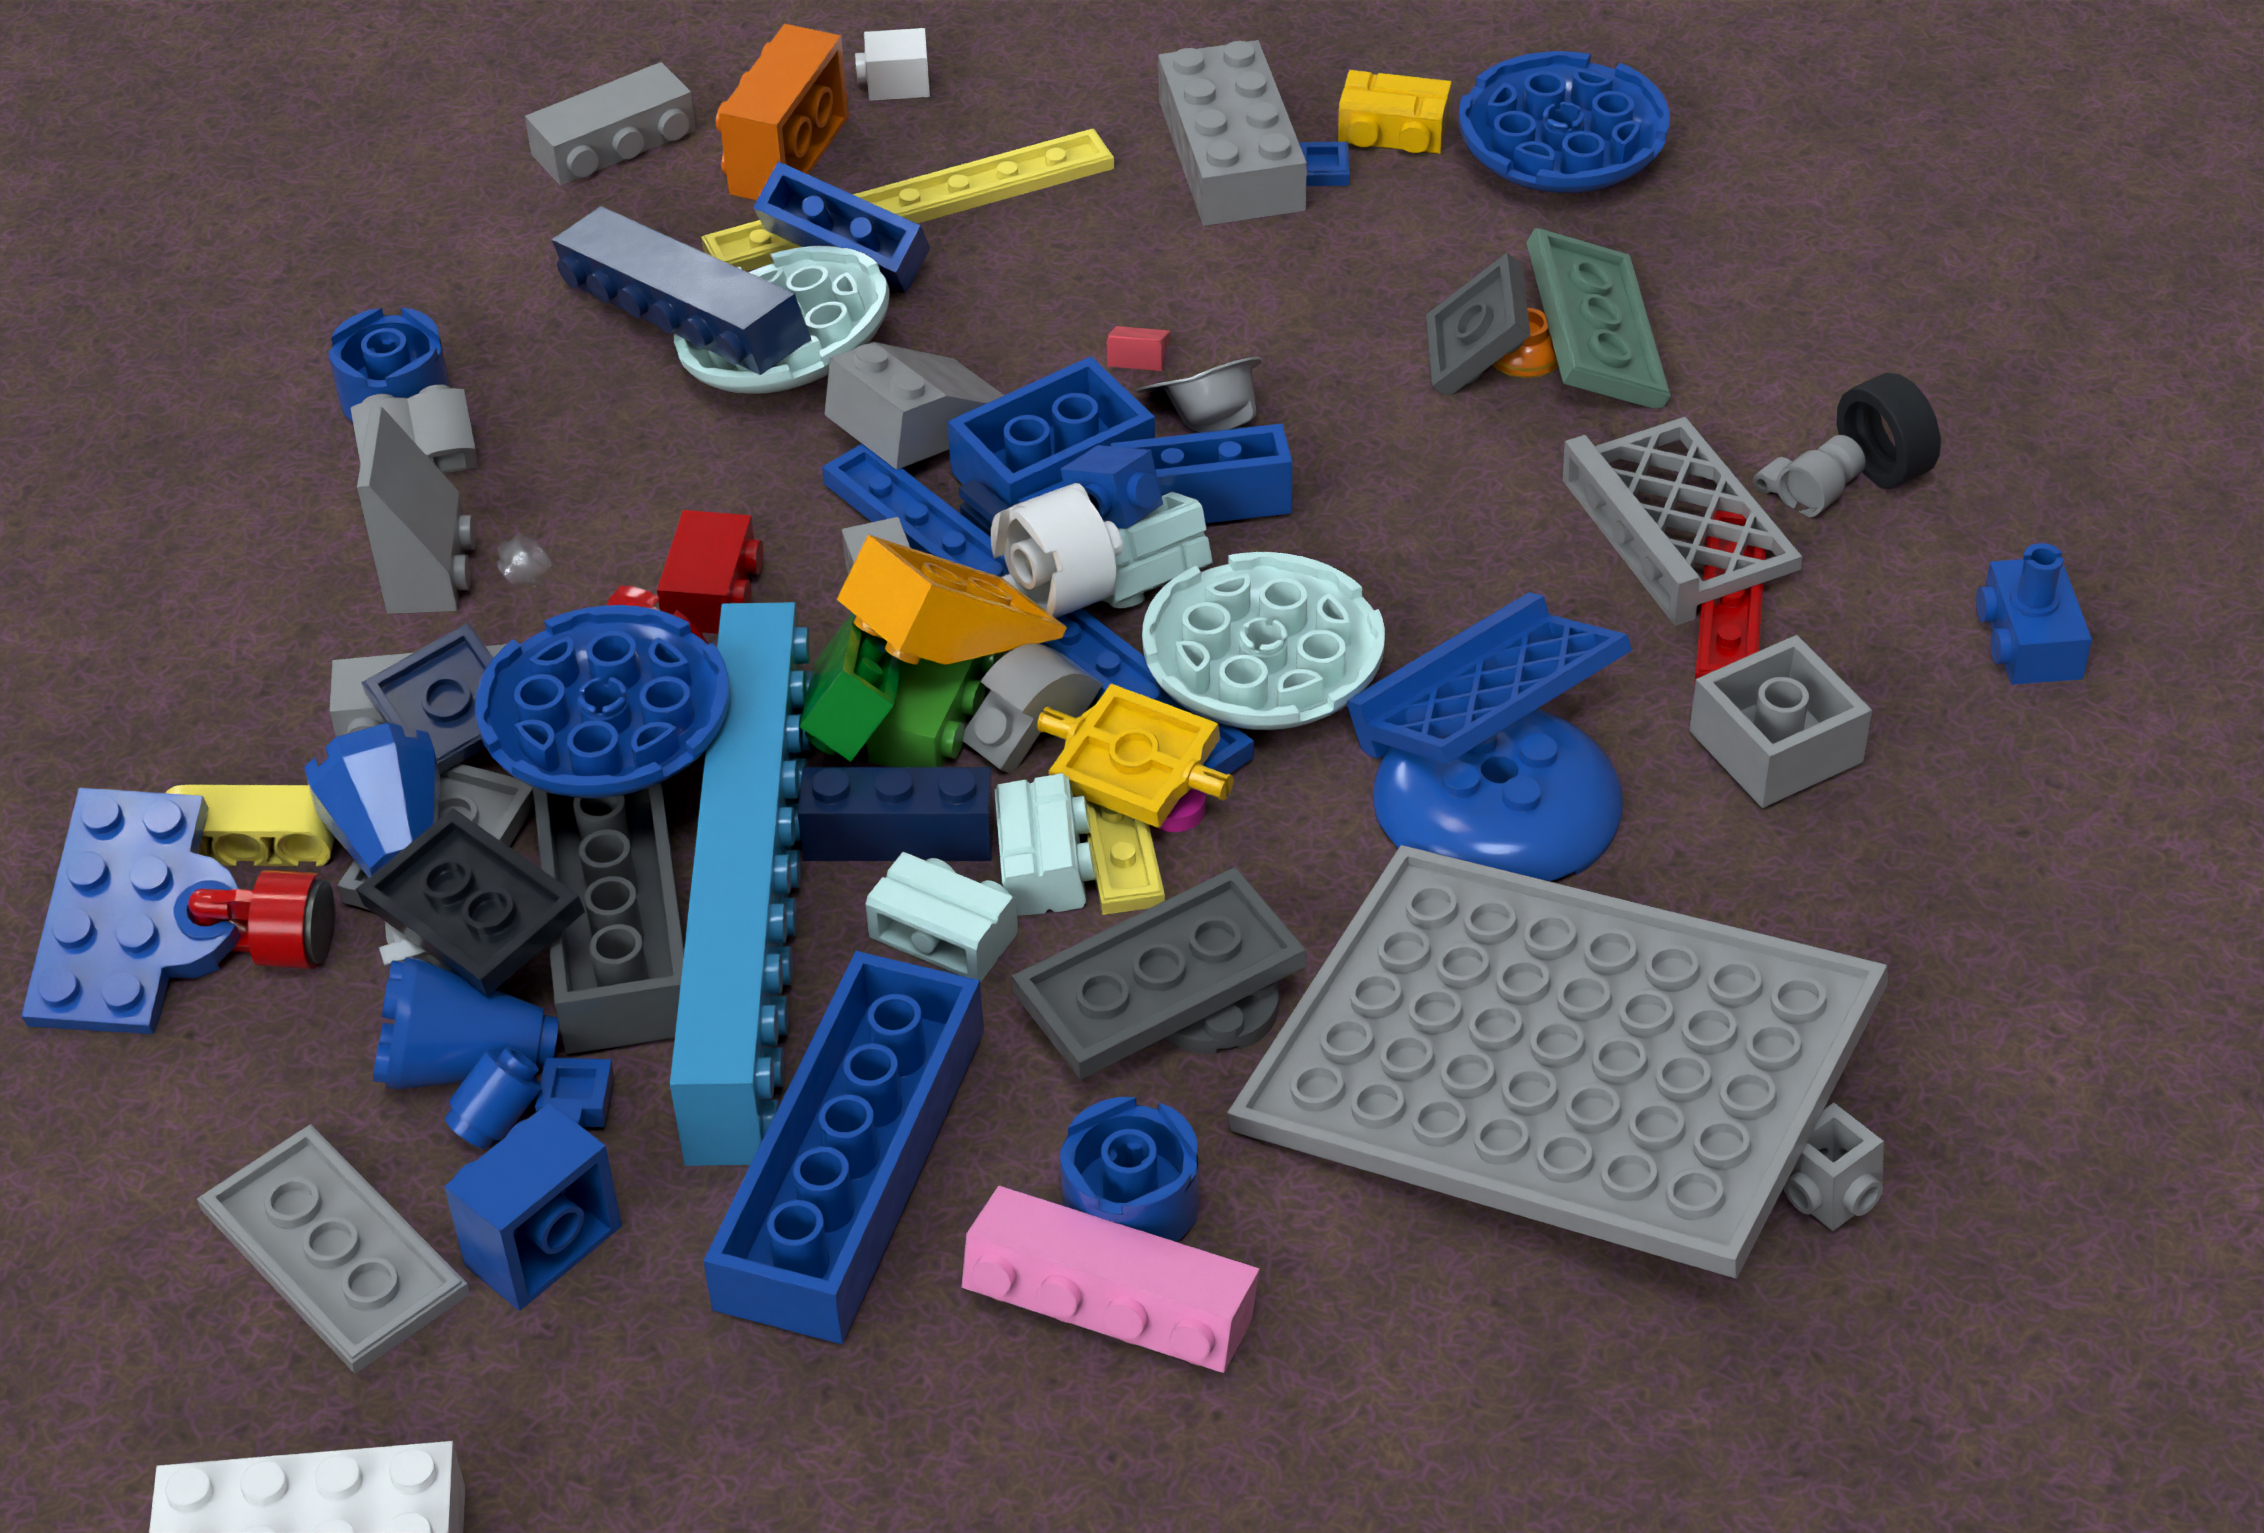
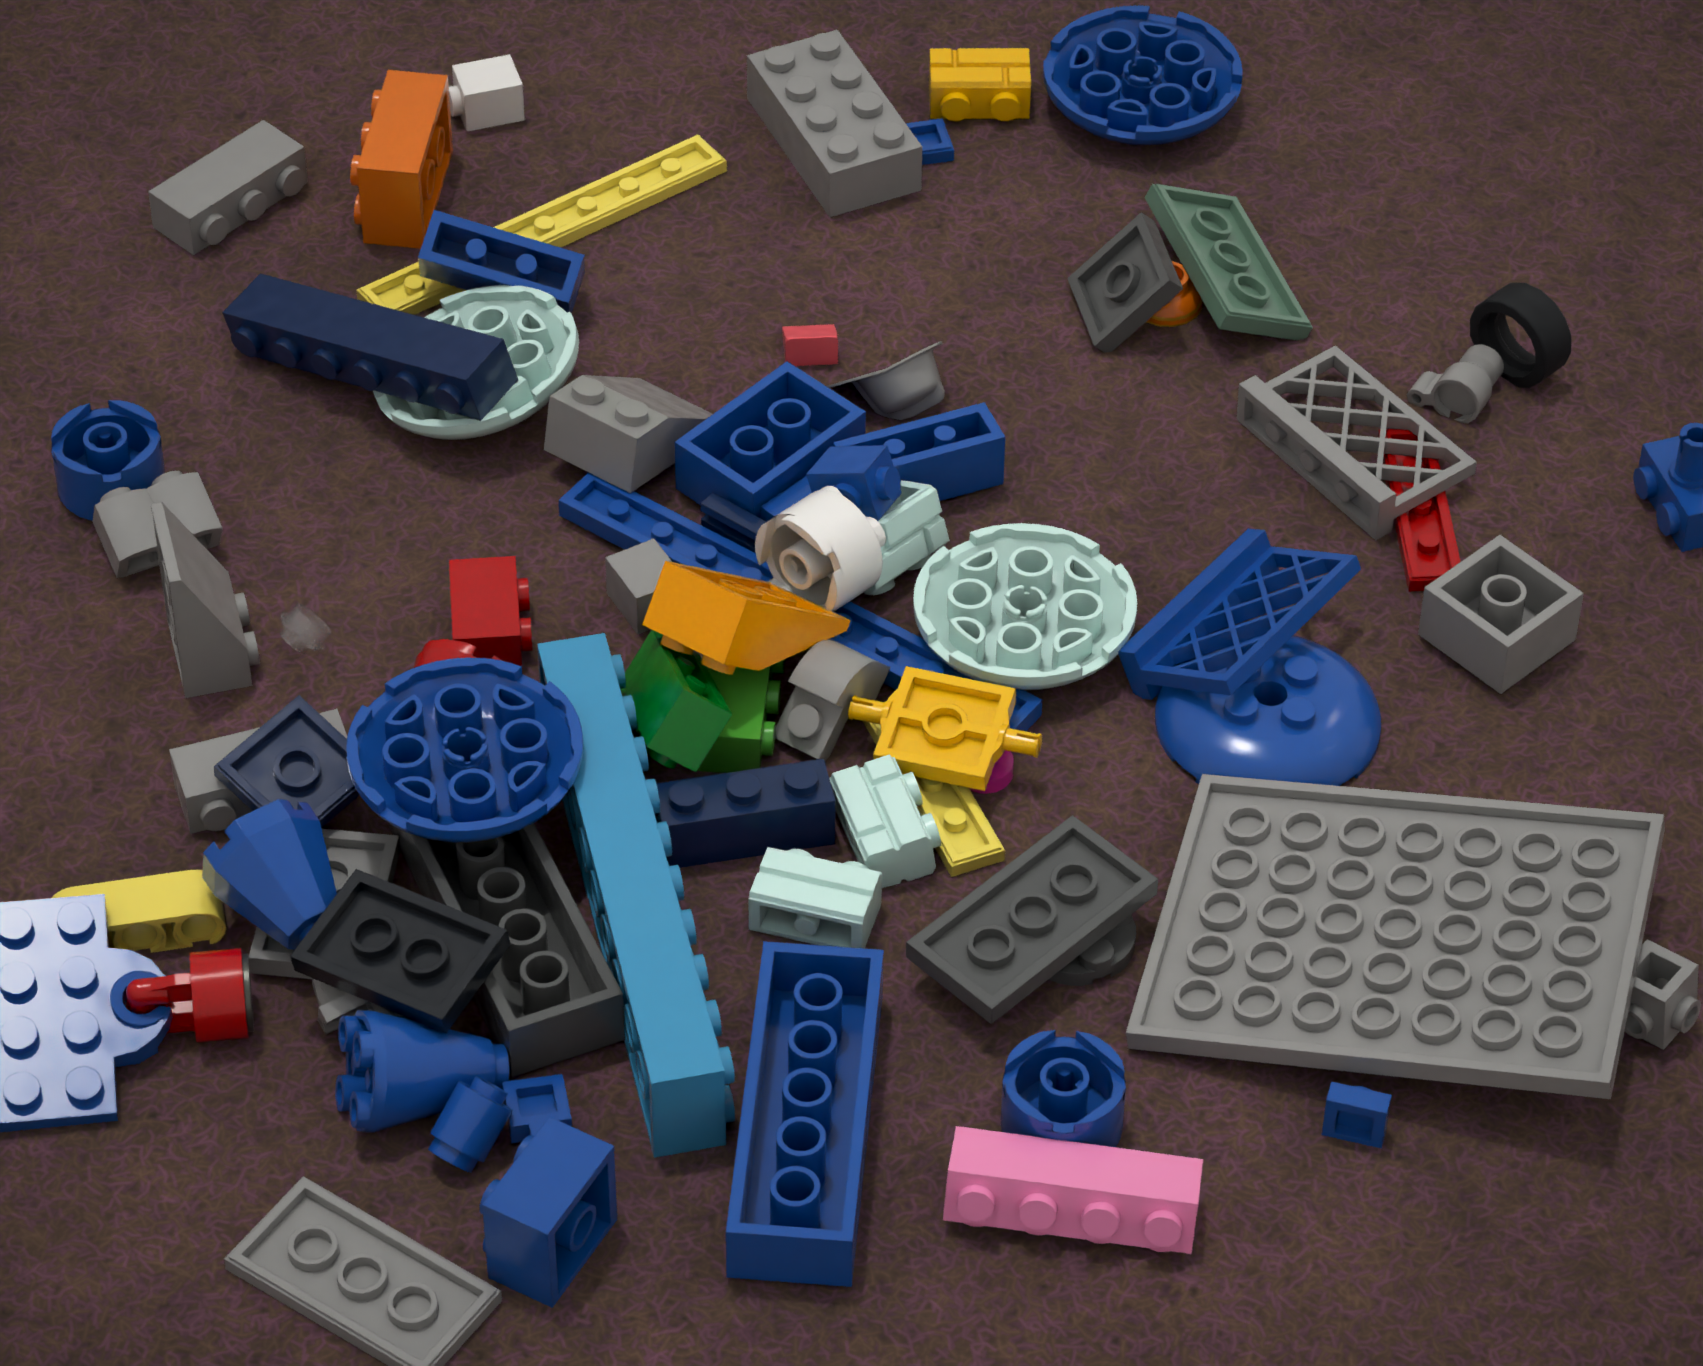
camera: 15 degrees left, 0 degrees up
(1455, 1246) = (1356, 1114): none -> blue plate

